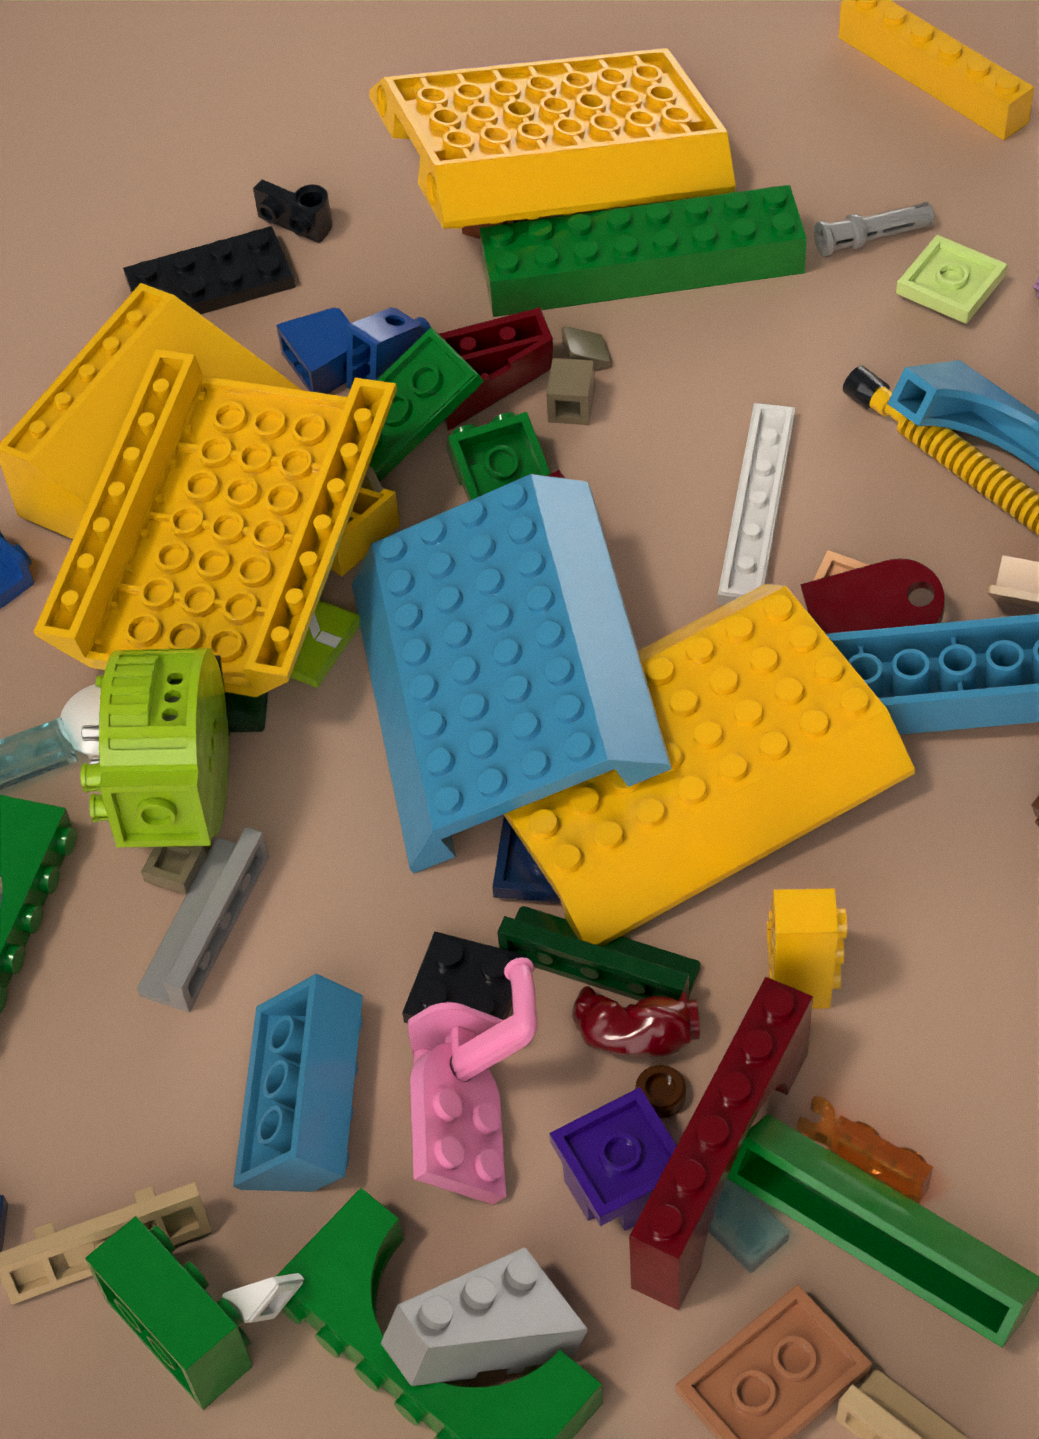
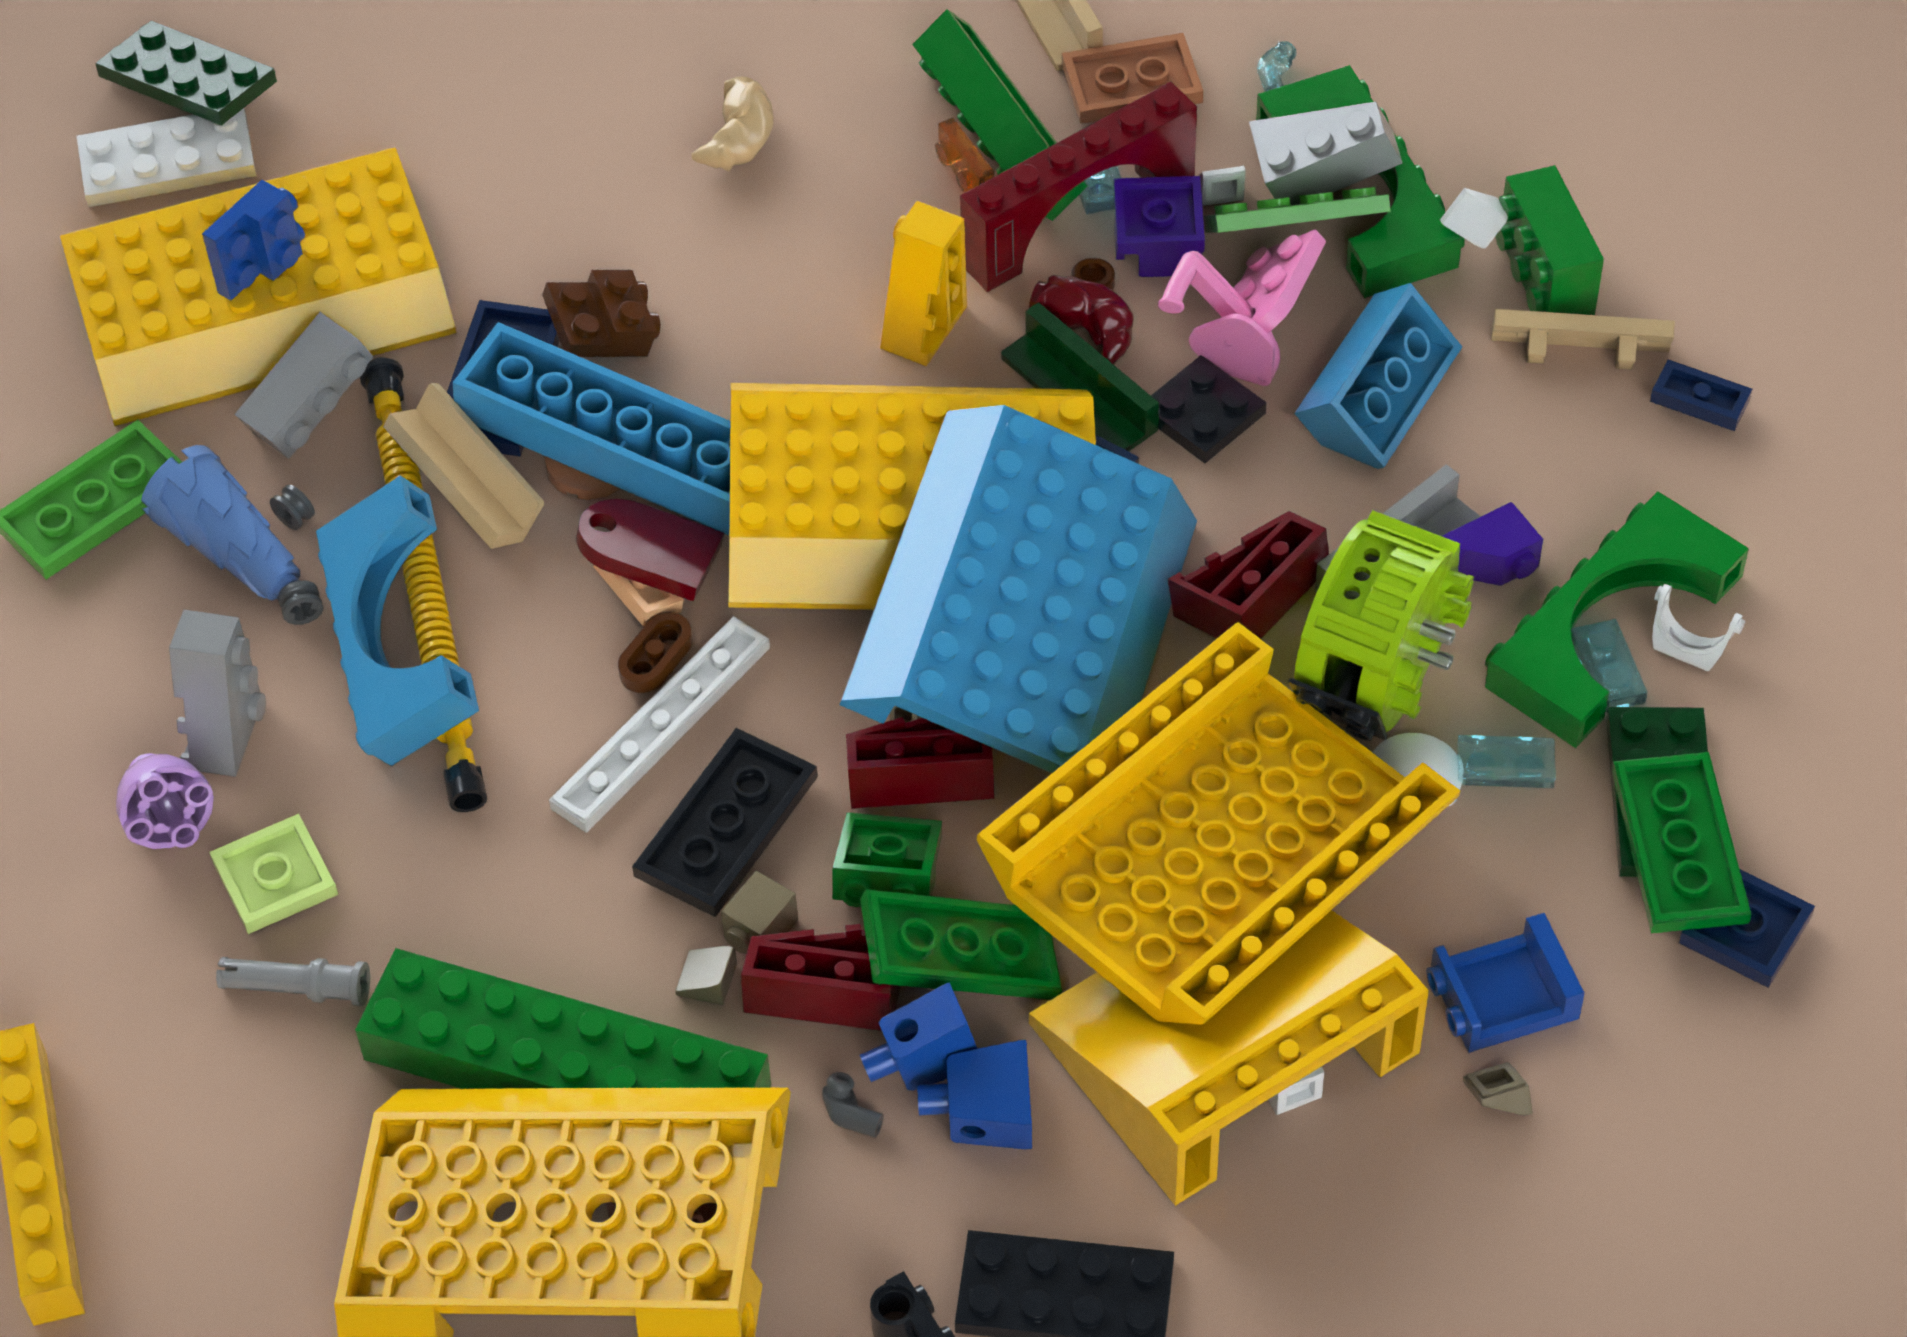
camera: 155 degrees left, 0 degrees up
(111, 944) = (1498, 546): none -> dark purple slope
(318, 800) = (1254, 580): none -> dark red wedge
(430, 310) = (844, 1108): none -> dark grey arm
(488, 1215) = (1311, 208): none -> bright green plate
(590, 1271) = (1223, 185): none -> white slope
(646, 447) = (725, 822): none -> black plate
(801, 542) = (653, 656): none -> reddish brown plate

